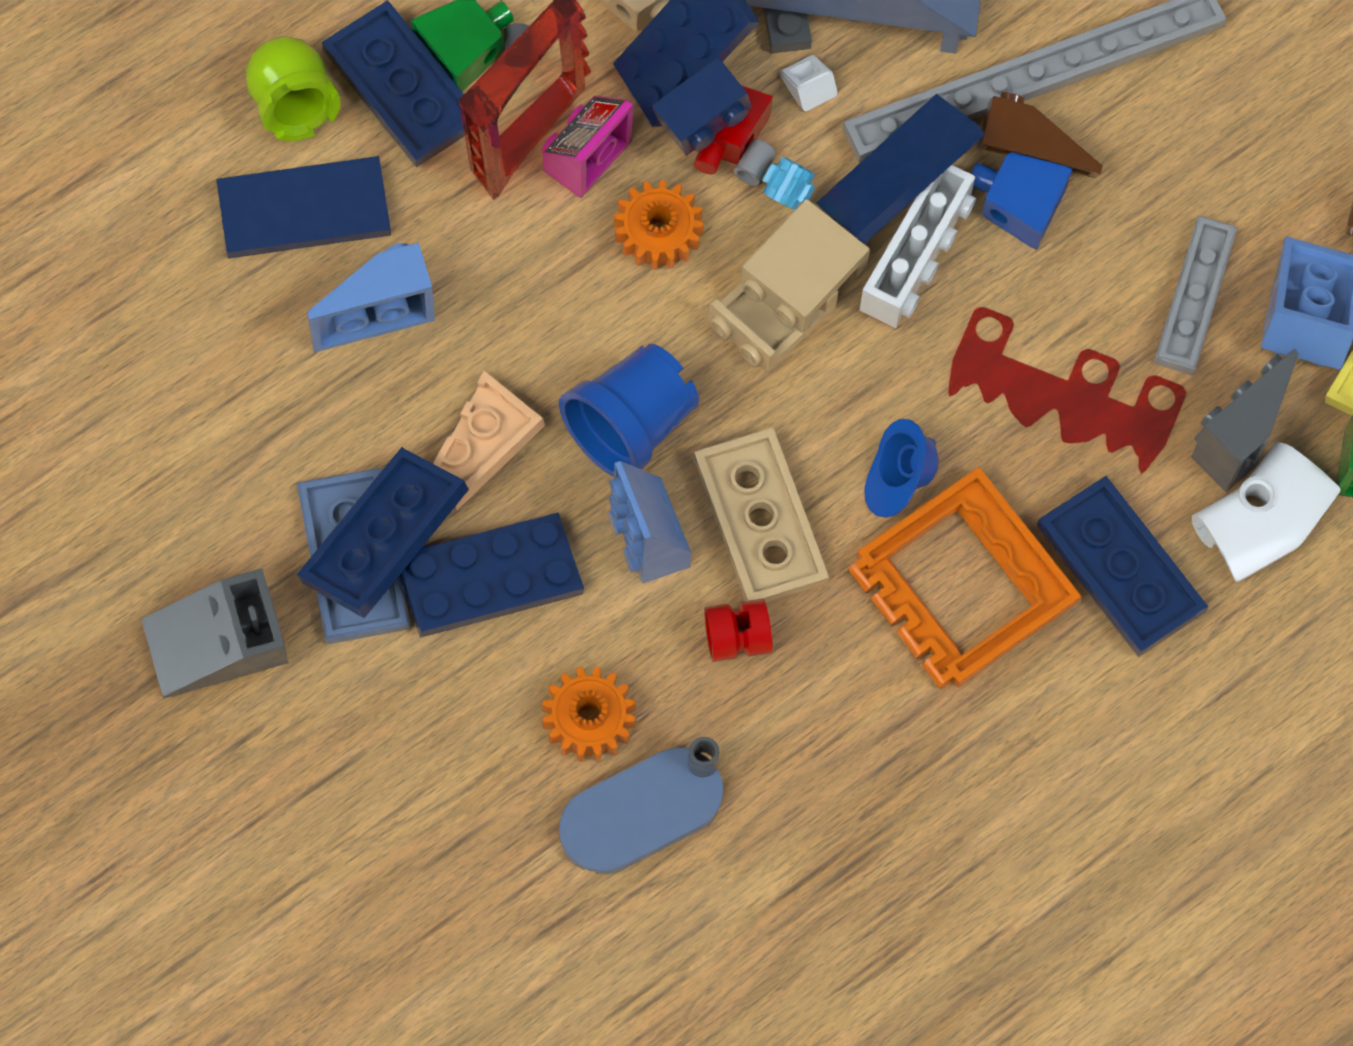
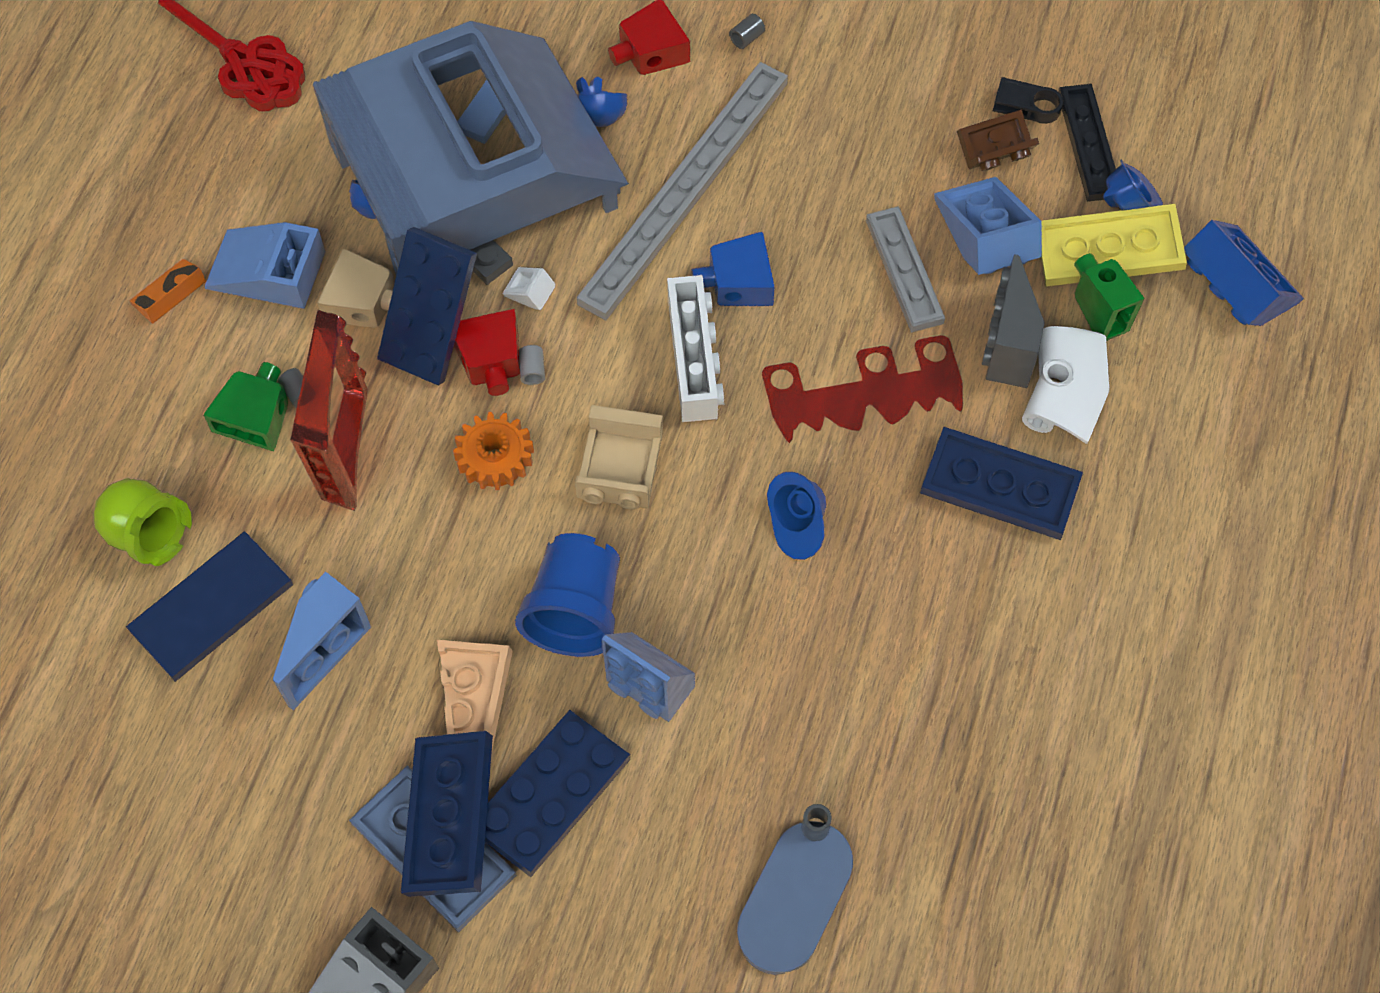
camera: 30 degrees left, 5 degrees down
(399, 82) = (225, 467): dark blue plate -> none
(589, 143) = (400, 423): dark pink slope -> none
(590, 736) = (703, 828): orange gear -> none
(702, 107) = (472, 343): dark blue brick -> none
(723, 625) = (774, 704): red wheel -> none
(775, 493) = (723, 639): tan plate -> none
(788, 183) = (568, 363): medium azure gear -> none
(802, 265) = (623, 413): tan panel -> none
(900, 168) = (644, 303): dark blue tile -> none
(1008, 543) = (914, 519): orange hinge -> none
(1024, 130) = (708, 224): reddish brown slope -> none

